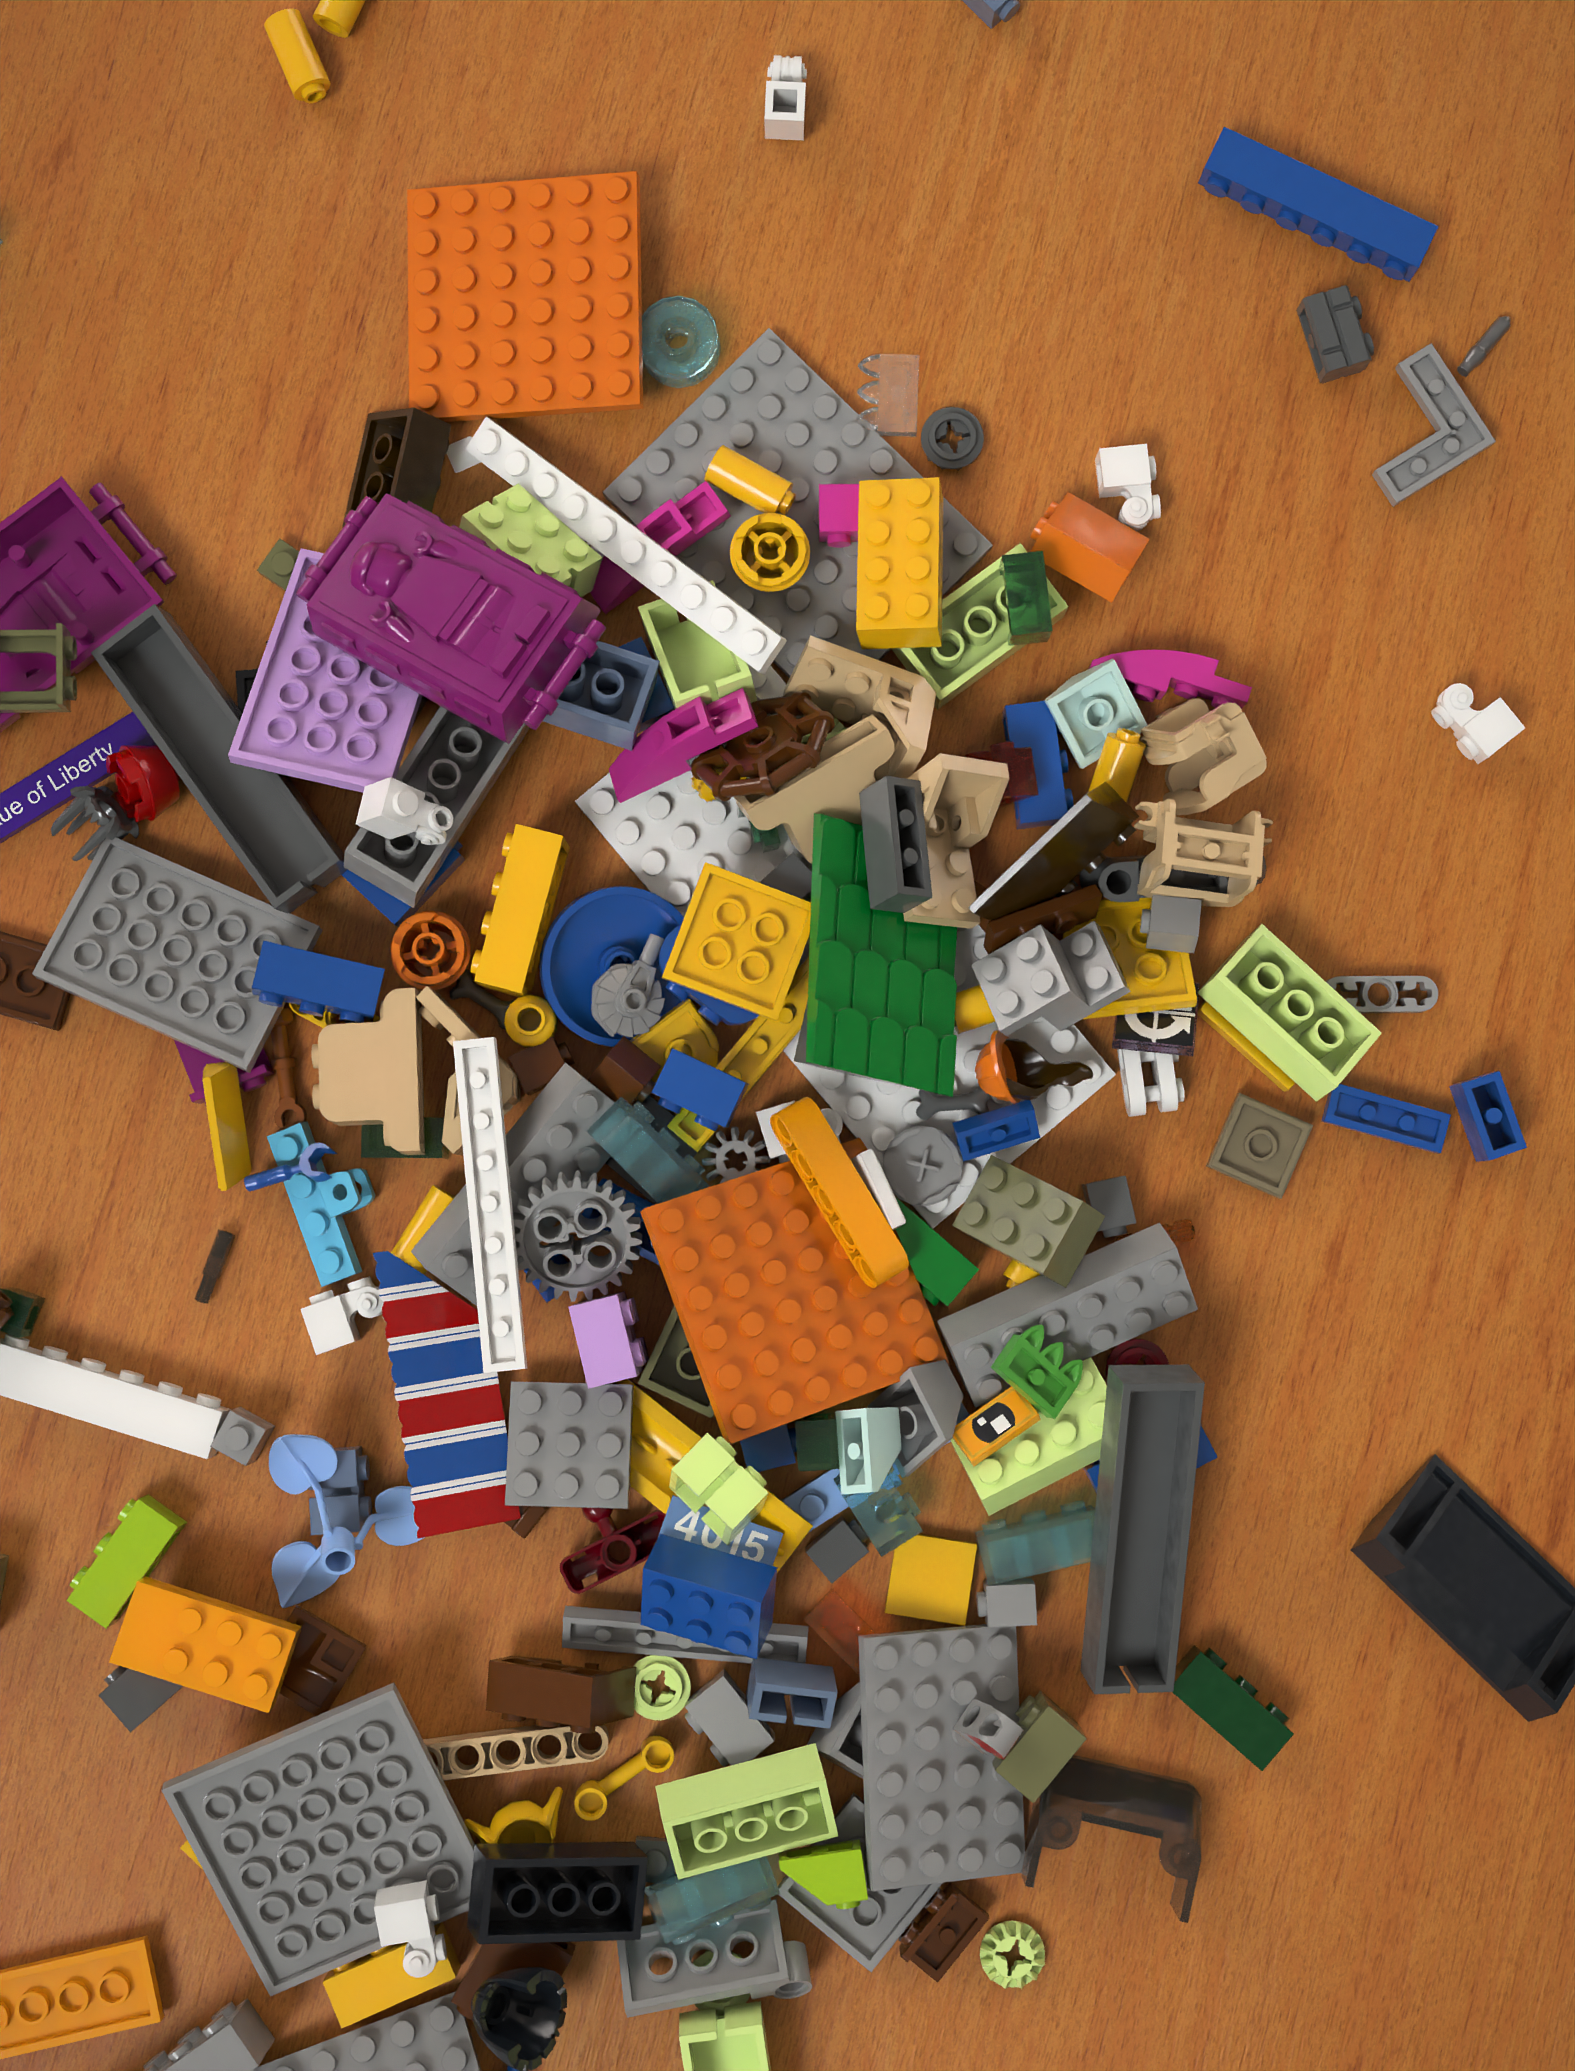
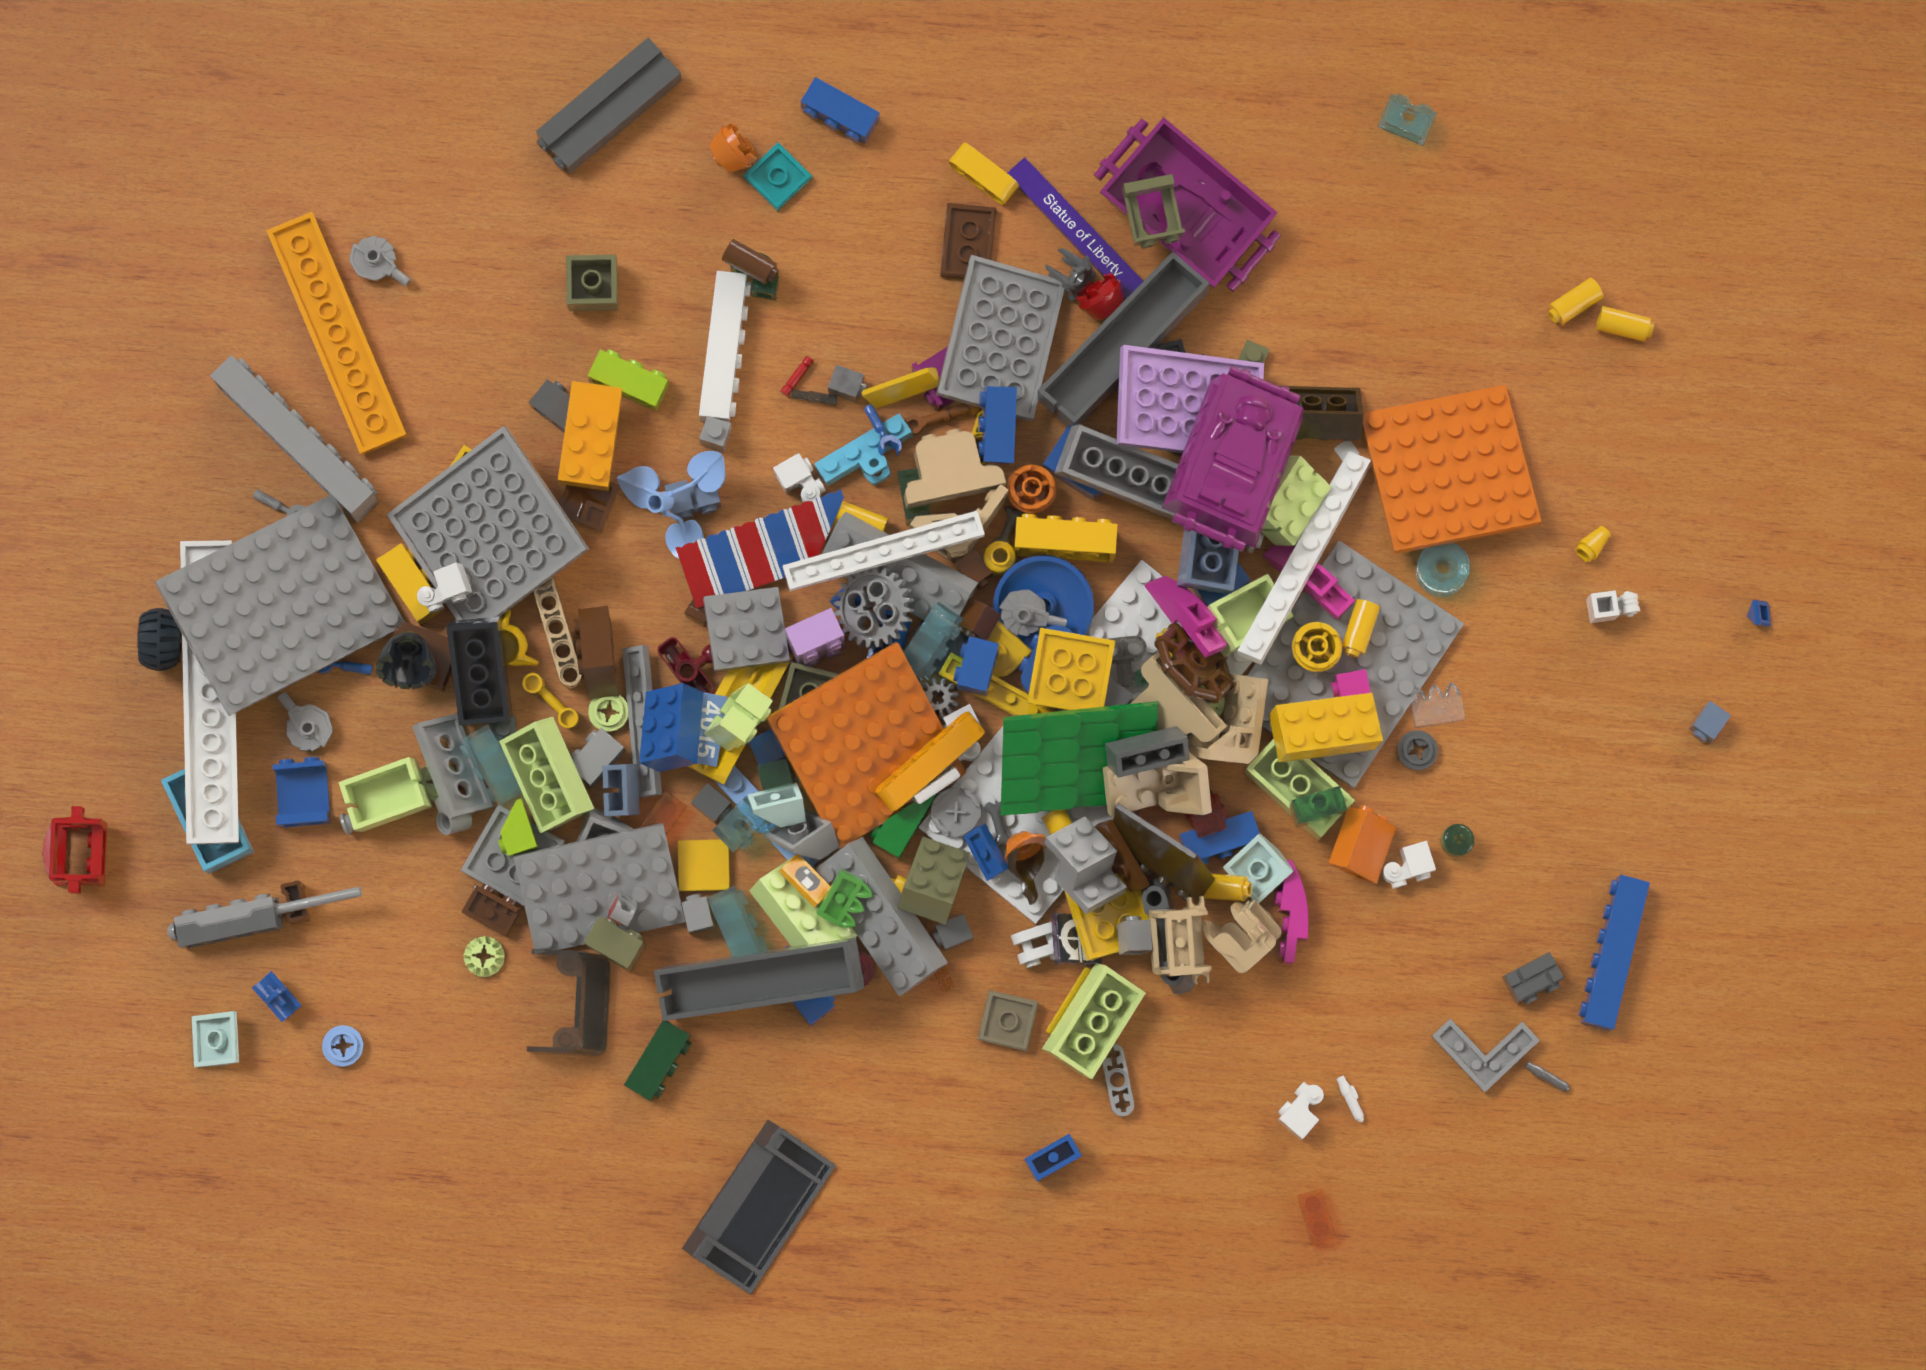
camera: 75 degrees right, 5 degrees down
(174, 1287) = (797, 376): none -> red wheel
(202, 1210) = (847, 383): none -> flat silver brick
(399, 809) = (1109, 451): white brick -> none
(683, 109) = (1592, 544): none -> yellow cone
(729, 855) = (1124, 658): none -> clear smoke beam
(1105, 404) = (1450, 845): none -> clear green head
(1386, 1118) = (1040, 1097): blue plate -> none
(1464, 645) = (1351, 1097): none -> white piece

